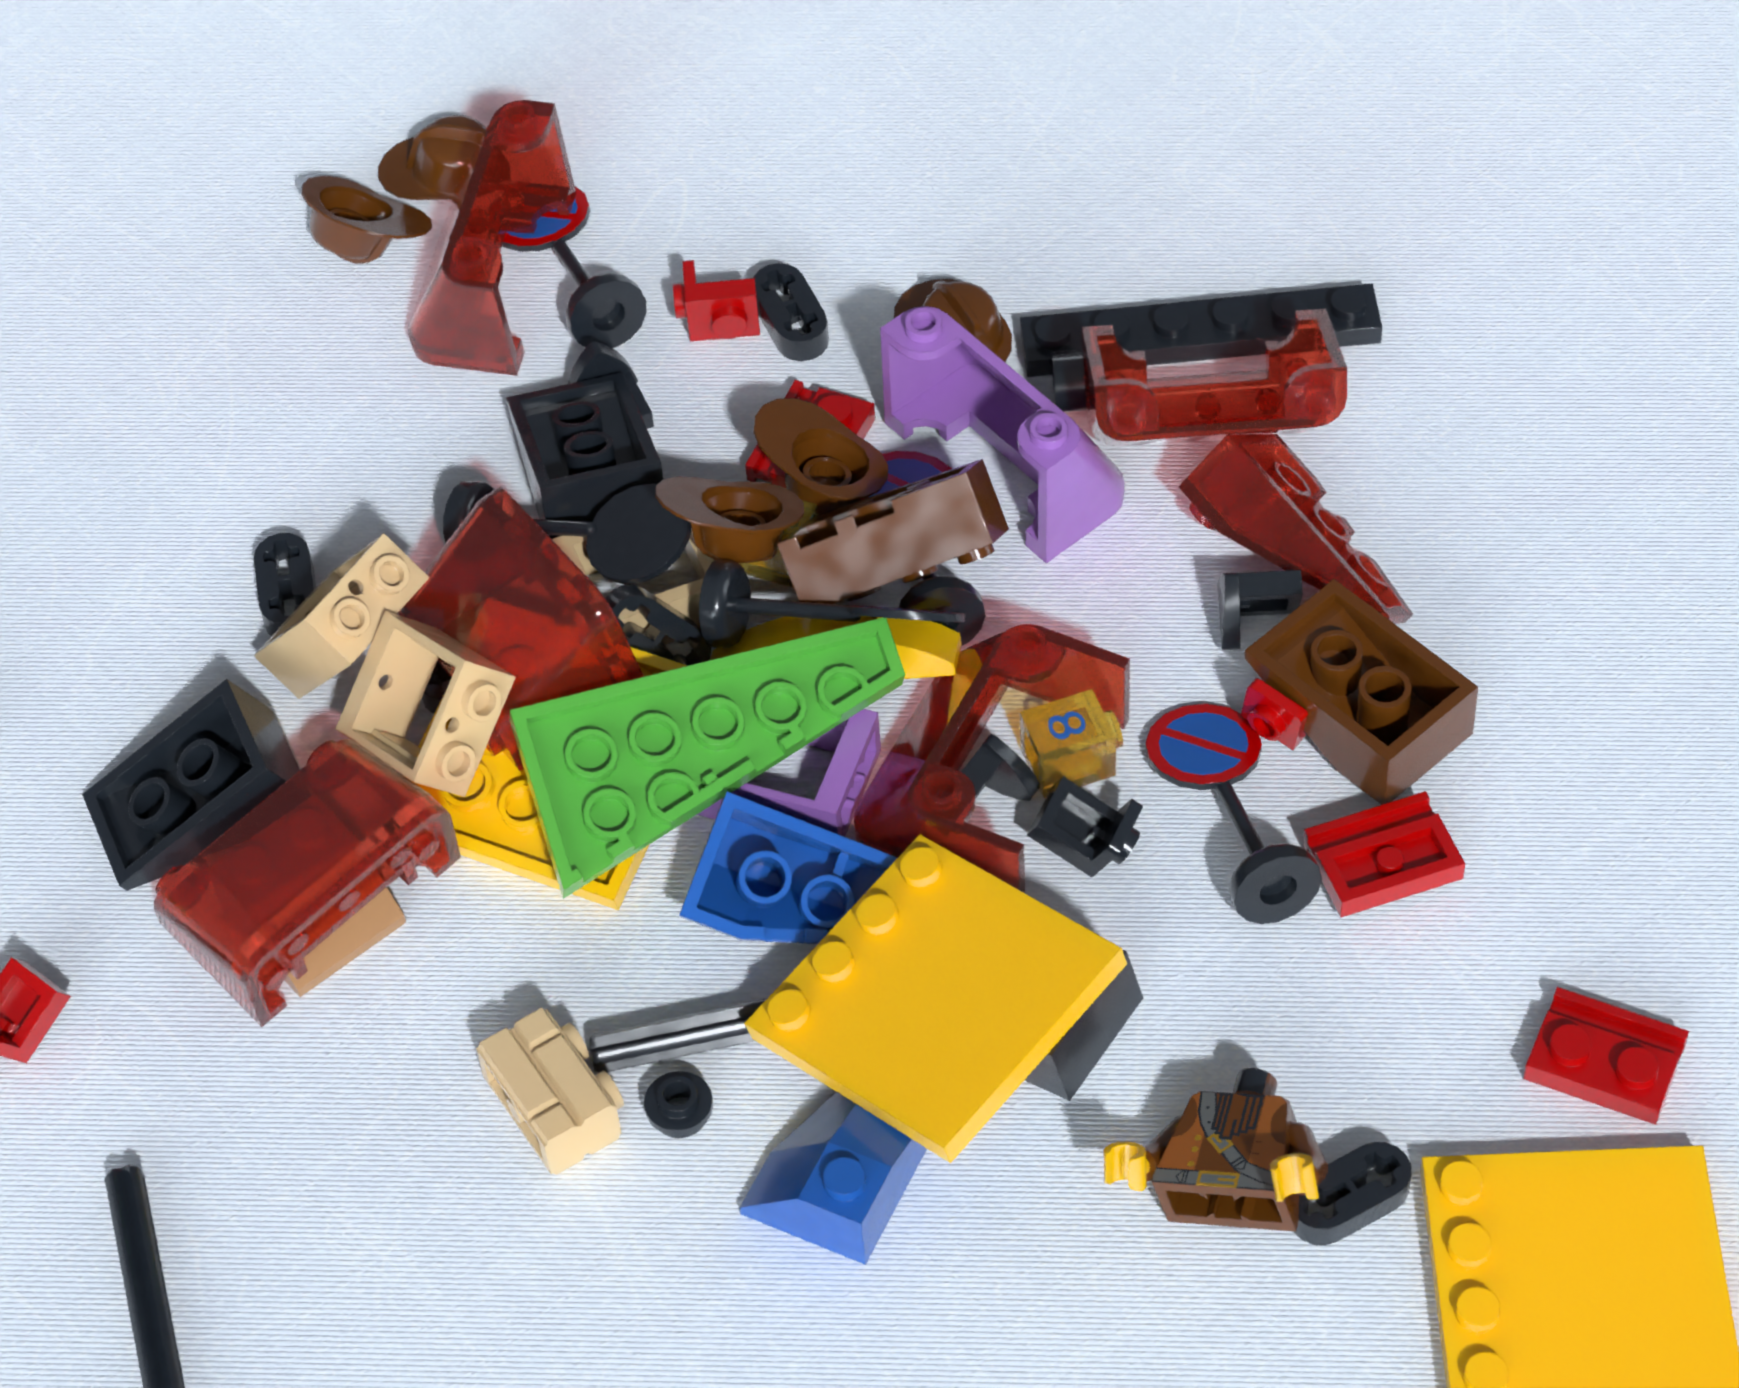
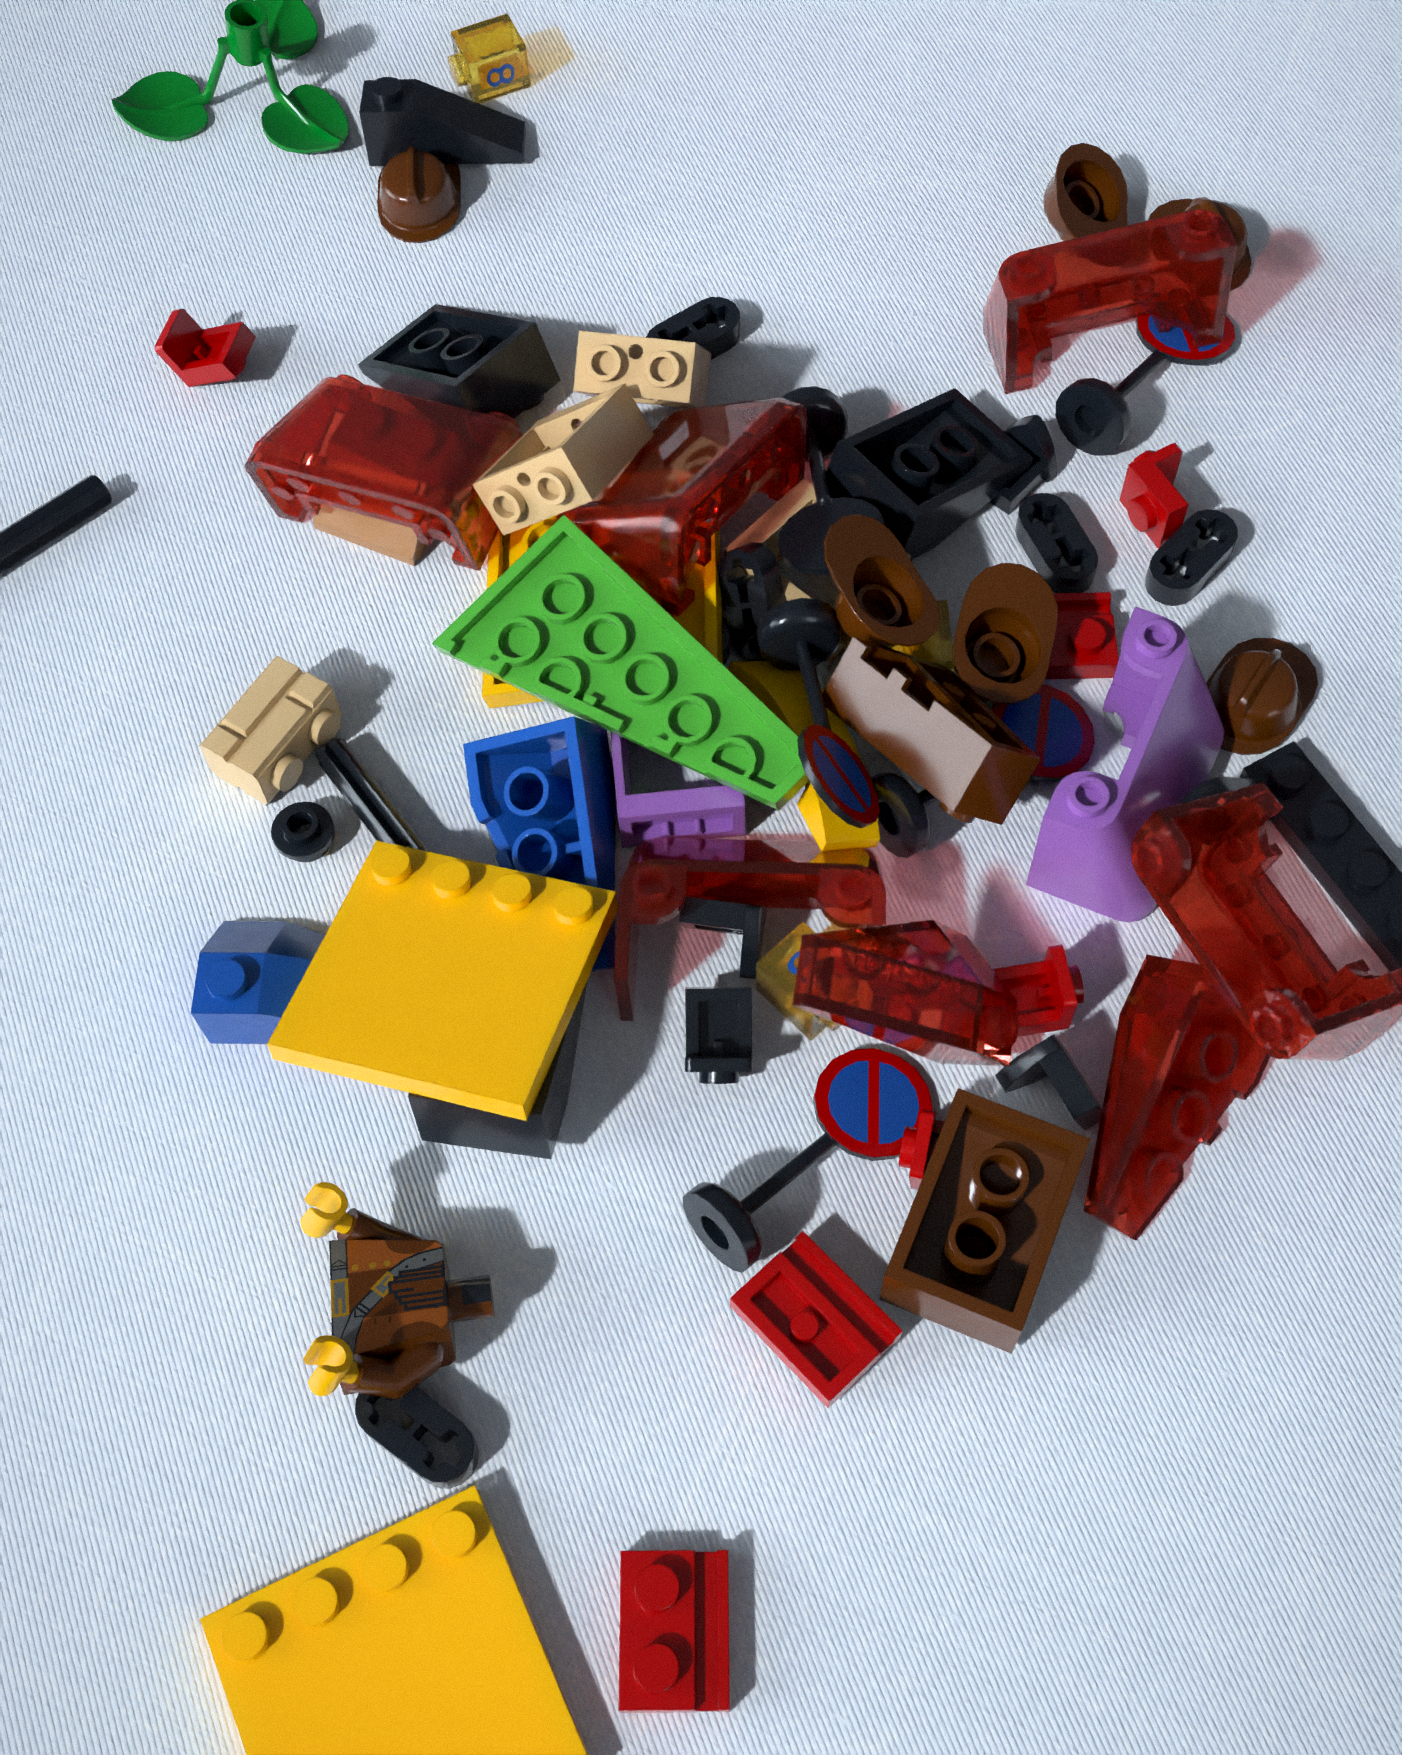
camera: 65 degrees right, 10 degrees up
(713, 399) = (1065, 540): none -> black beam
(1156, 632) = (912, 989): none -> clear red wedge
(1166, 586) = (1044, 992): none -> red bracket

